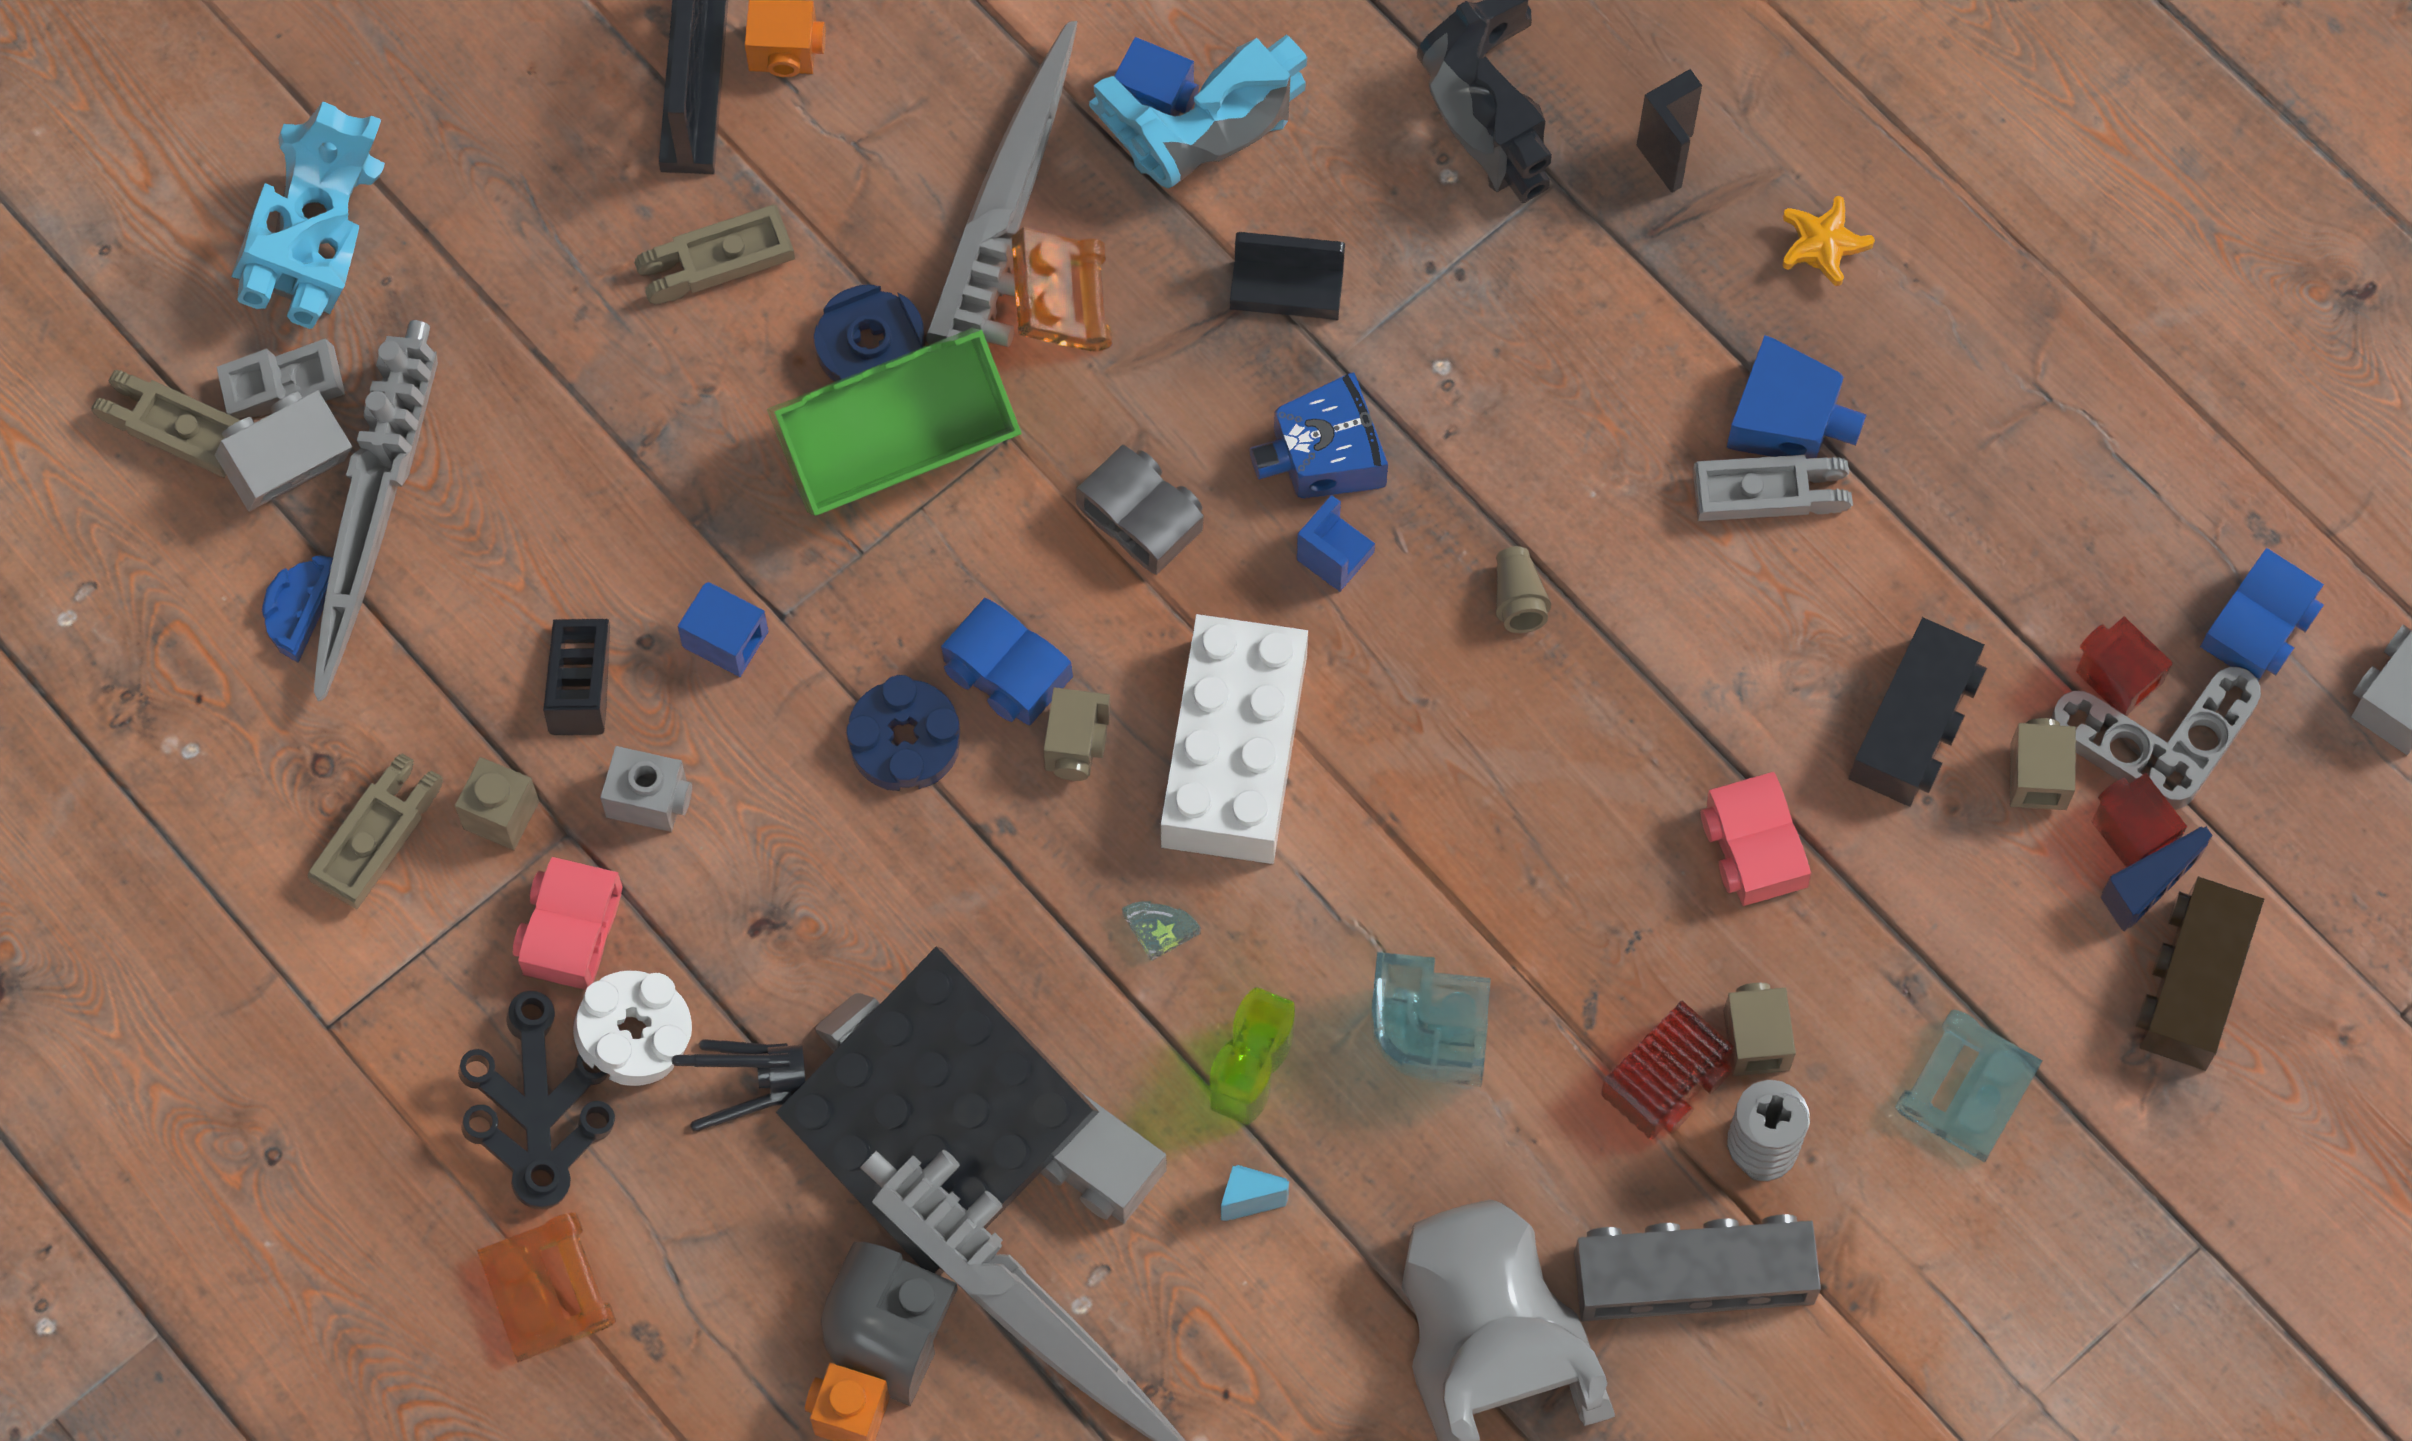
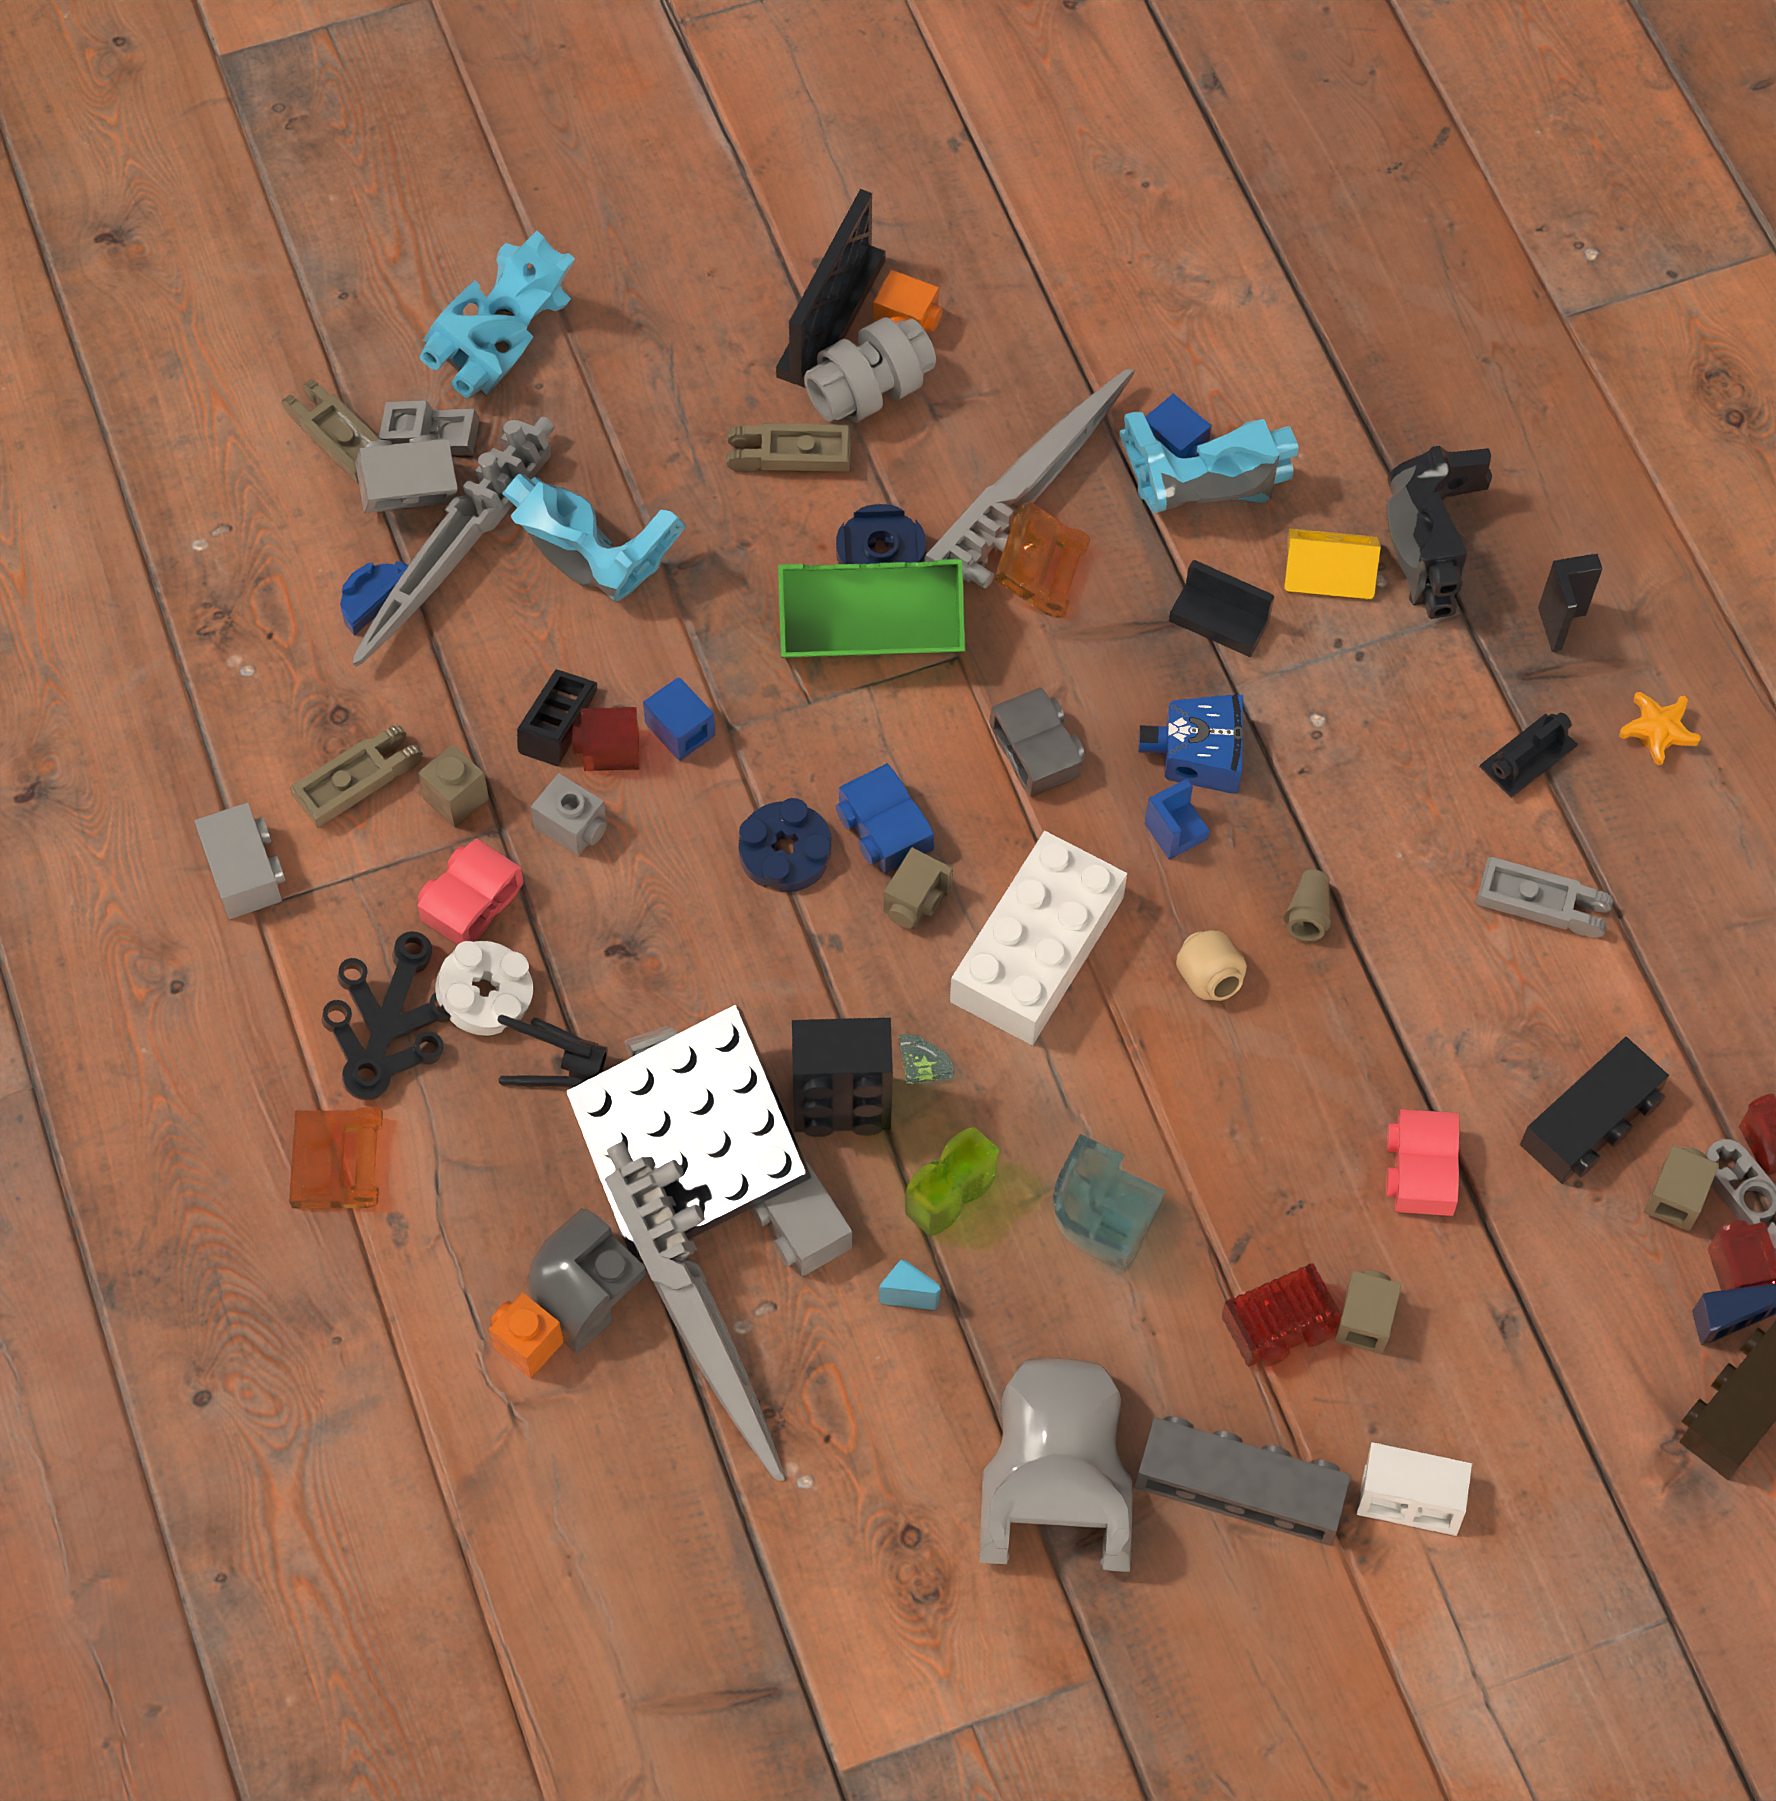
camera: 20 degrees right, 5 degrees down
(285, 982) = (239, 860): none -> light grey brick
(507, 457) = (569, 537): none -> medium azure hips
(651, 683) = (608, 739): none -> clear red brick
(788, 112) = (853, 378): none -> light grey piece
(1087, 984) = (842, 1075): none -> black brick
(1389, 175) = (1332, 563): none -> yellow panel
(1438, 700) = (1211, 965): none -> tan head
(1693, 323) = (1530, 753): none -> black hinge
(1768, 1129) = (1342, 1389): light grey piece -> none
(1791, 406) = (1583, 840): blue torso -> none
(1882, 1208) = (1414, 1489): none -> white hinge
(1985, 1096) = (1536, 1431): clear light blue plate -> none

